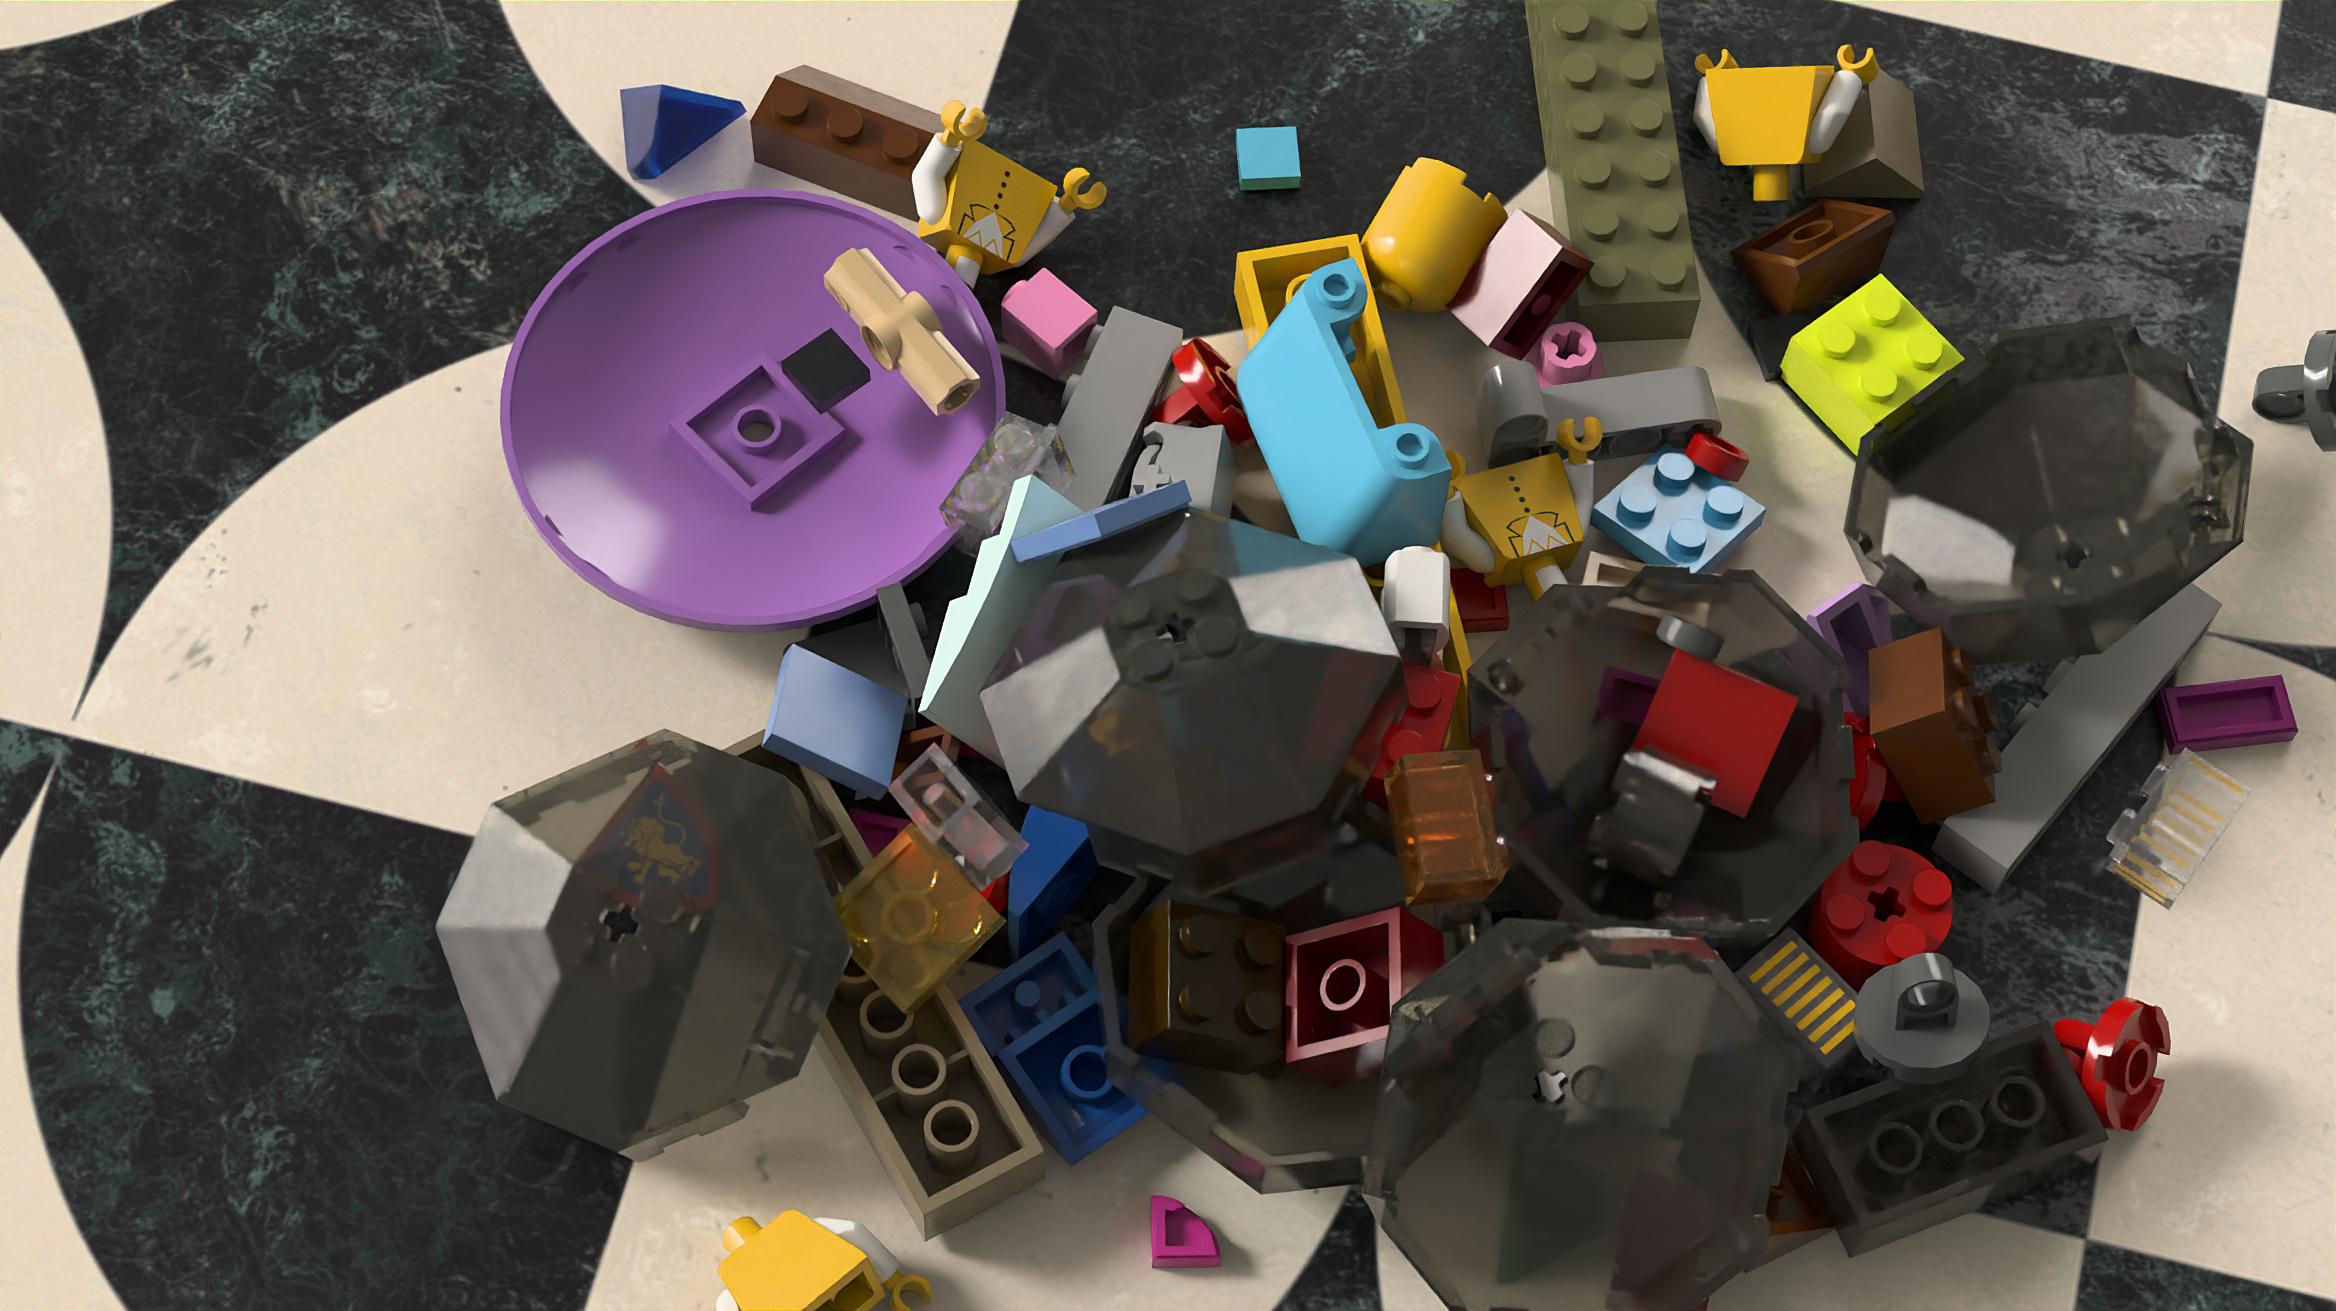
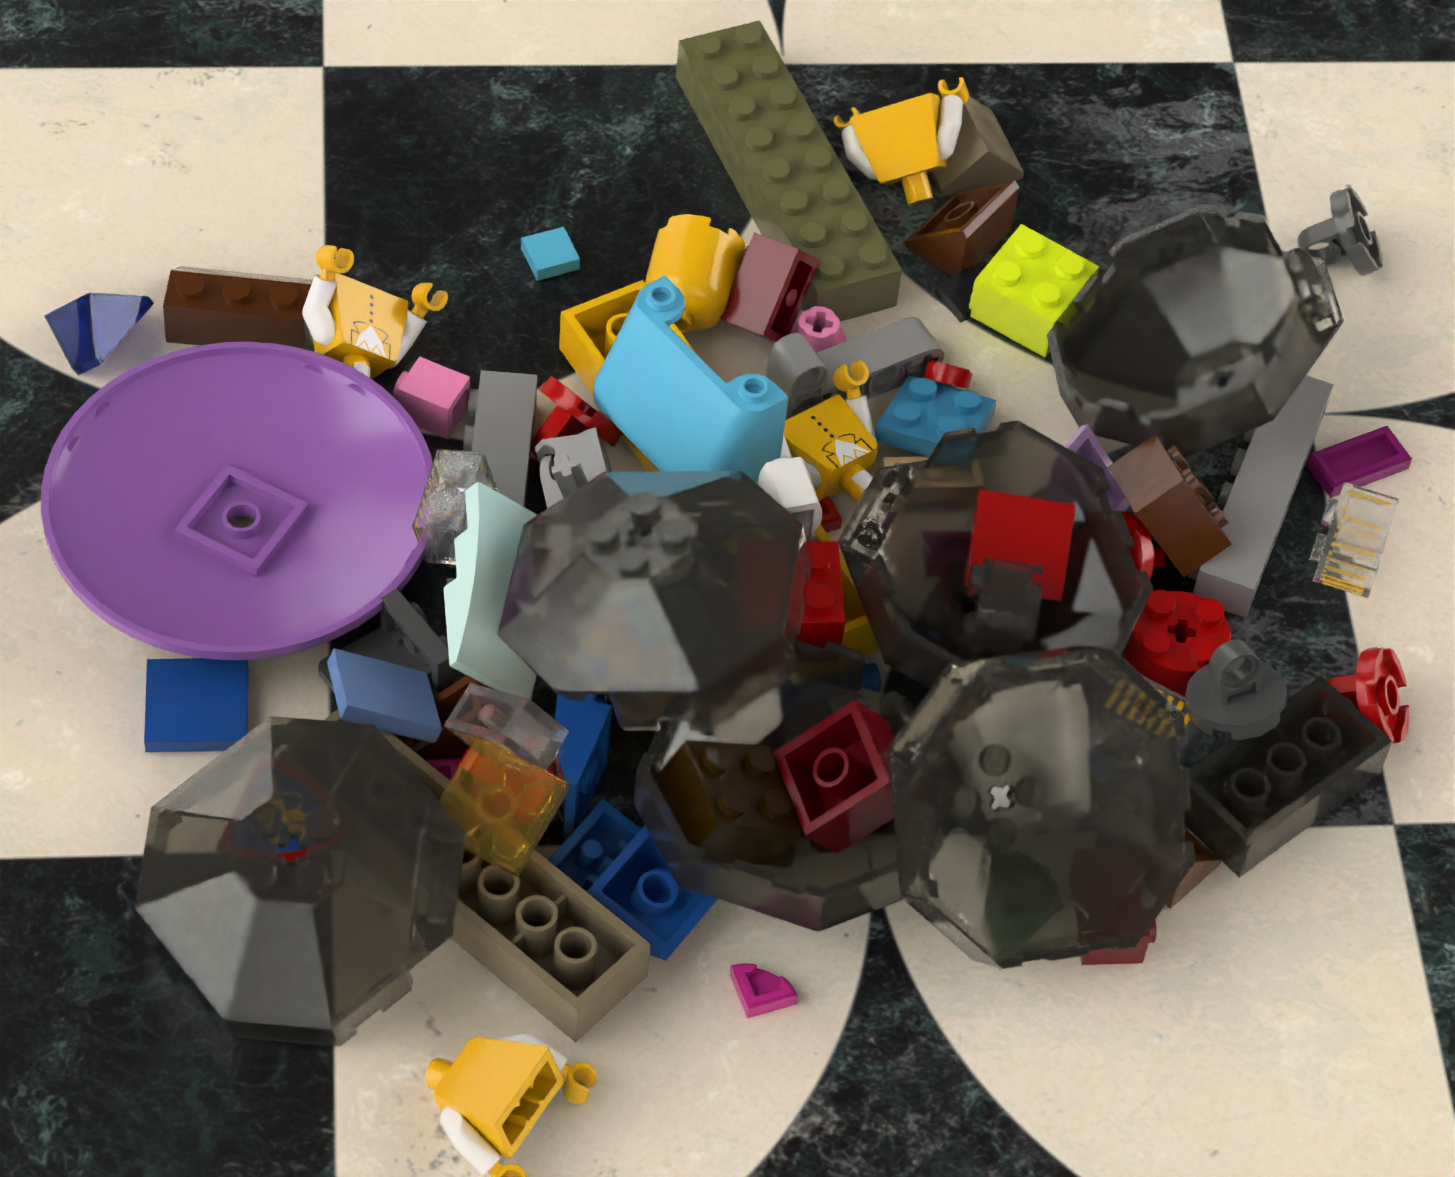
camera: 20 degrees left, 10 degrees down
(619, 664) = (195, 704): none -> blue tile
(826, 371) = (288, 457): black tile -> none
(901, 331) = (337, 416): tan piece -> none
(1101, 522) = (542, 498): medium blue tile -> none
(1445, 827) = (868, 638): clear orange brick -> none
(1690, 636) = (987, 478): dark grey tile -> none

